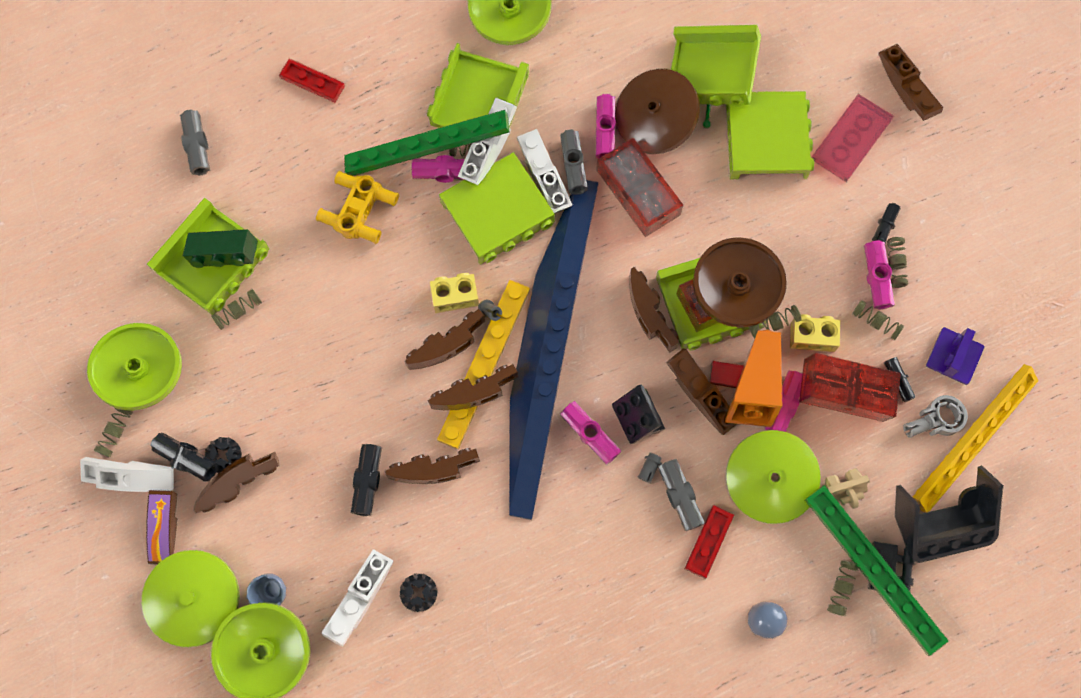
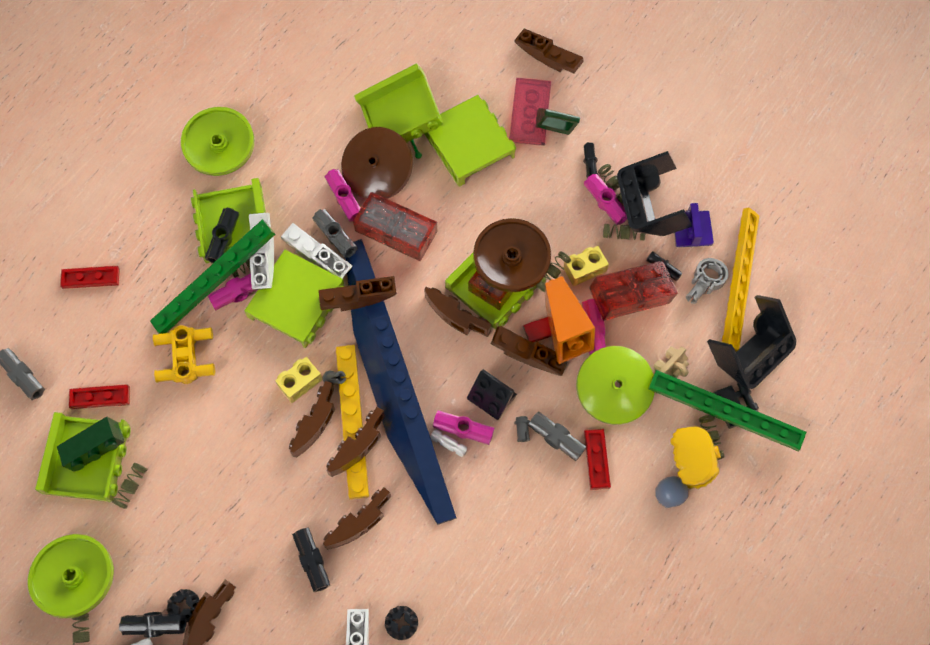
camera: 30 degrees left, 5 degrees down
(256, 205) = (99, 396): none -> red tile
(468, 97) = (225, 226): none -> black piece
(559, 240) = (359, 295): none -> reddish brown slope
(567, 440) = (448, 443): none -> white axle
(812, 598) = (695, 456): none -> yellow animal
(873, 163) = (556, 121): none -> dark green tile
(916, 278) = (635, 184): none -> black windscreen

